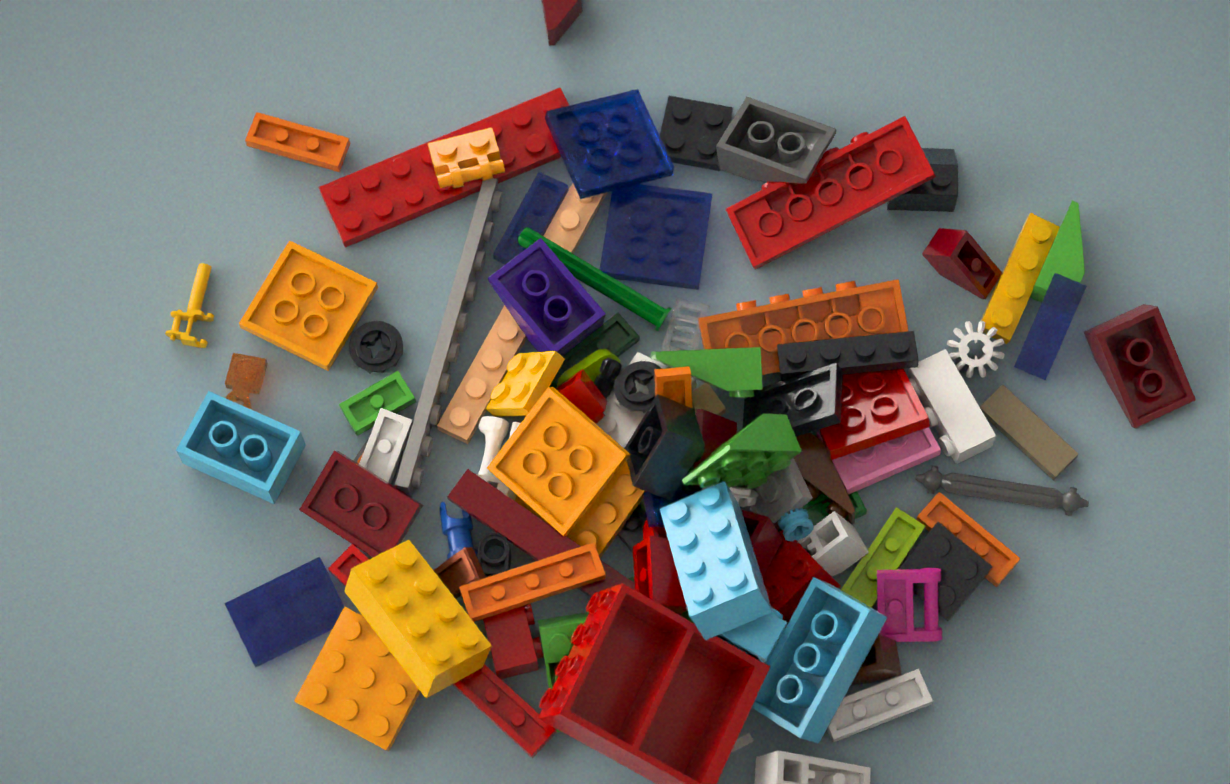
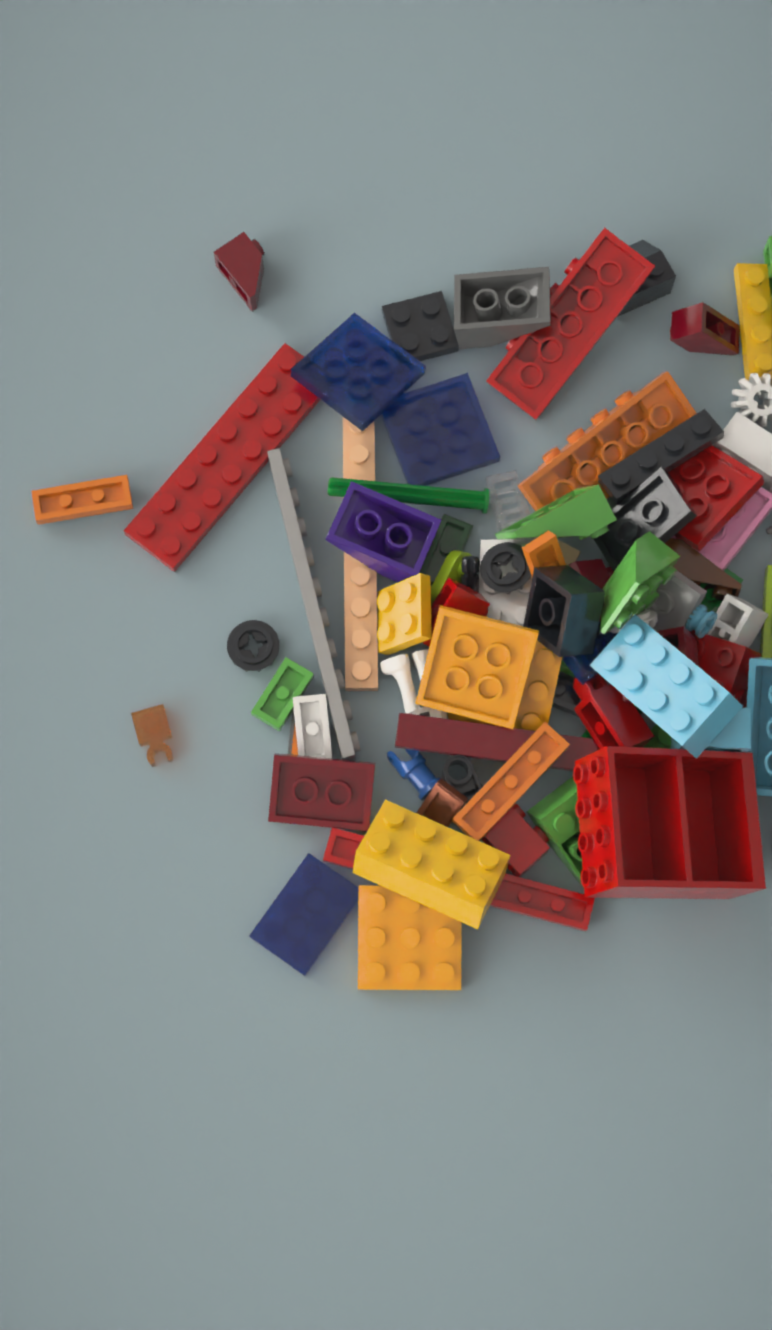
camera: 30 degrees left, 5 degrees up
(193, 311) = (74, 692): yellow piece -> none
(241, 447) = (188, 792): medium azure brick -> none
(308, 305) = (174, 638): light orange plate -> none
(466, 158) = (238, 438): light orange plate -> none
(534, 212) = (325, 463): clear blue plate -> none

